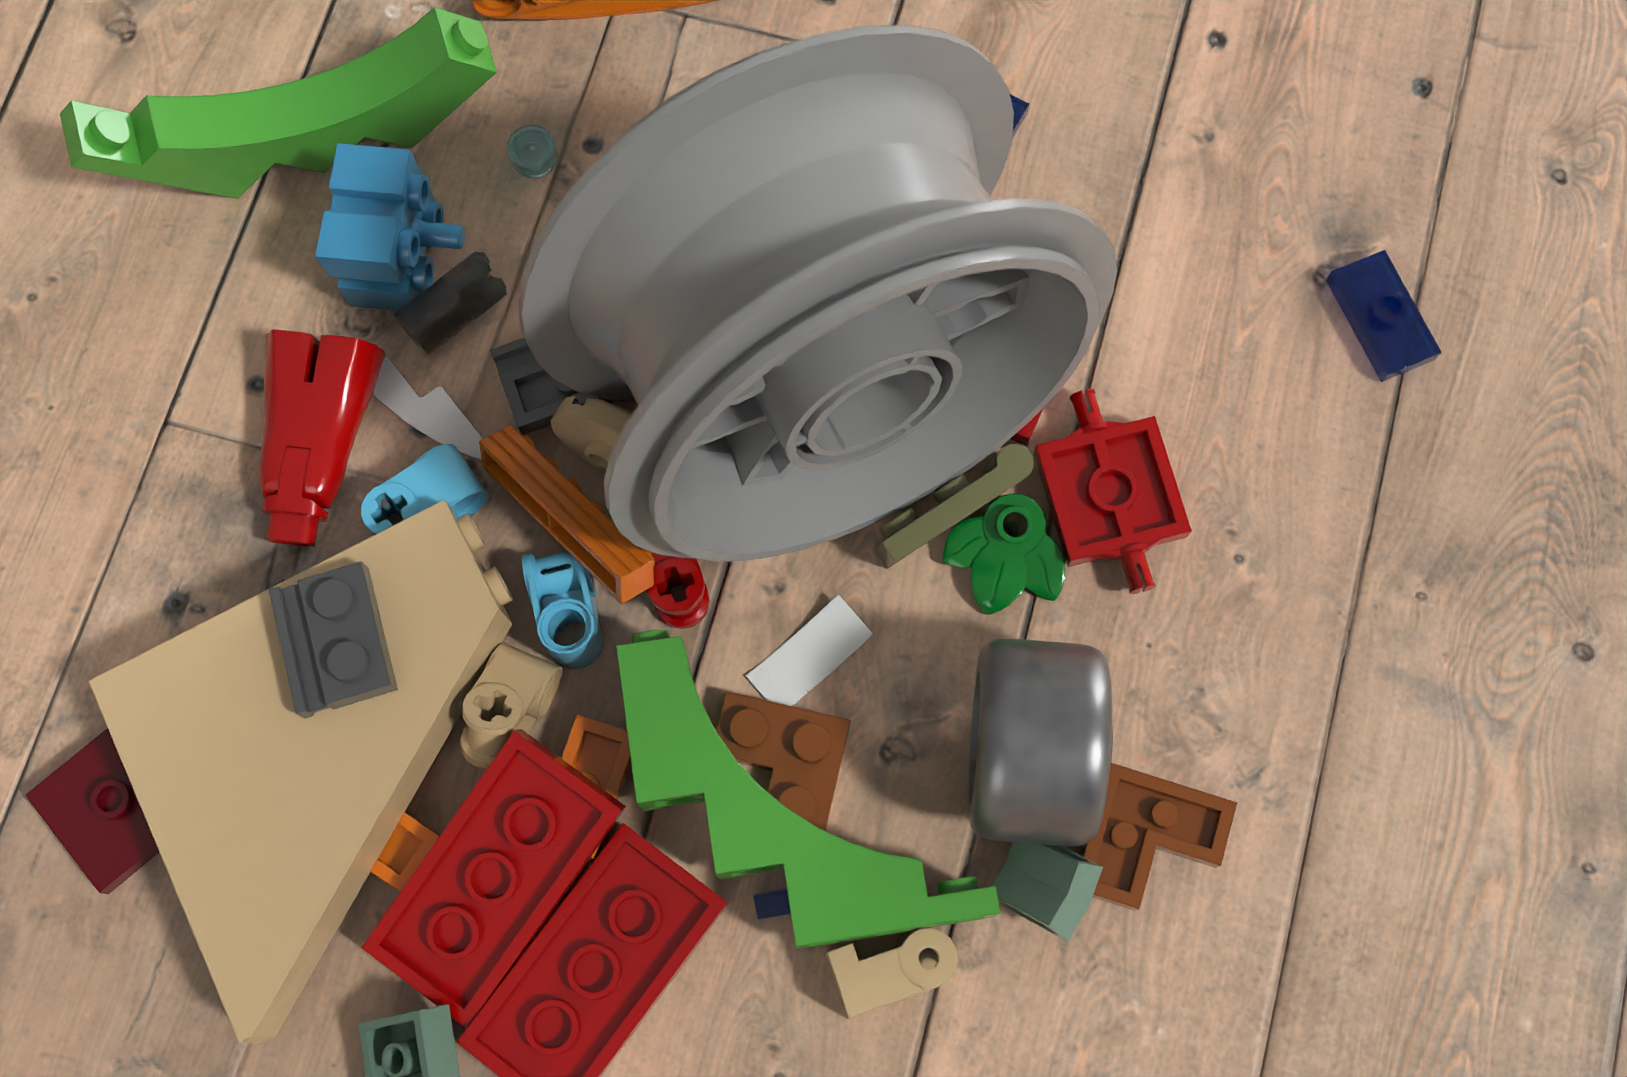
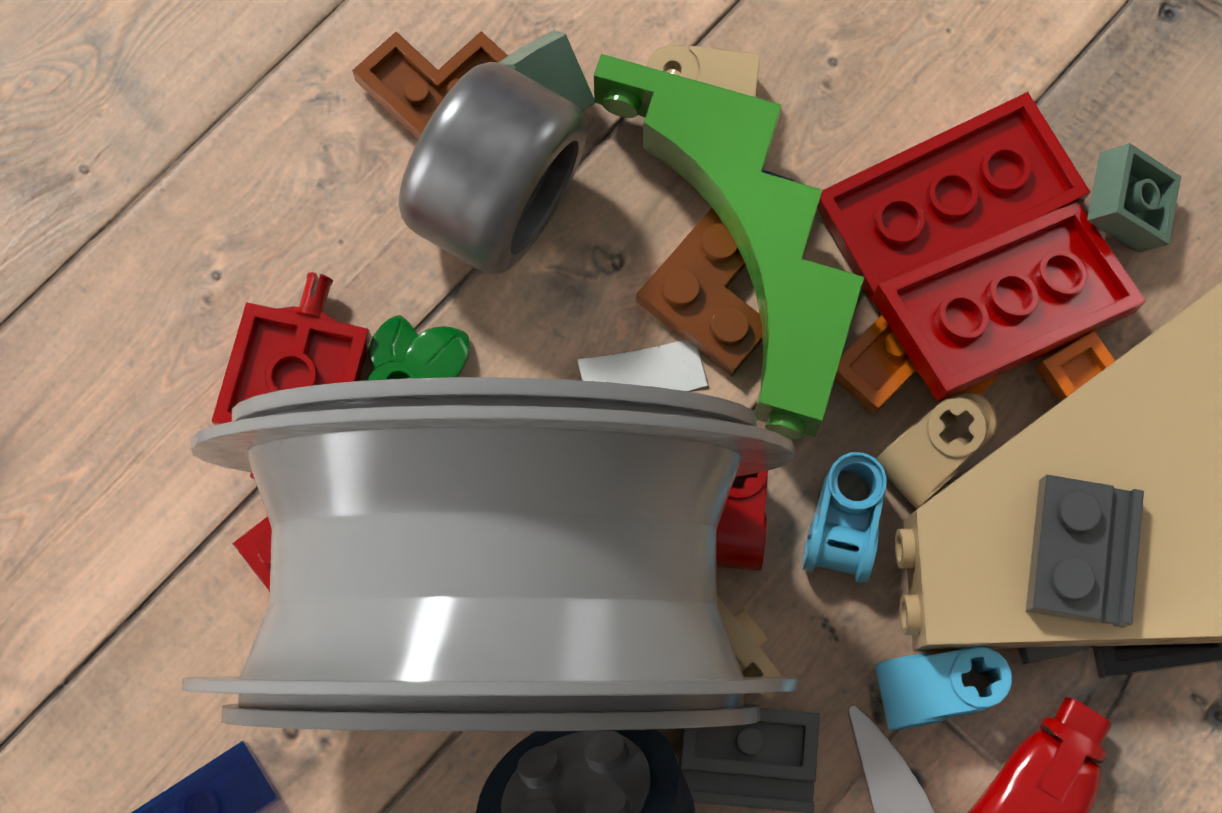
camera: 160 degrees left, 0 degrees up
(567, 513) = (811, 593): orange piece -> none

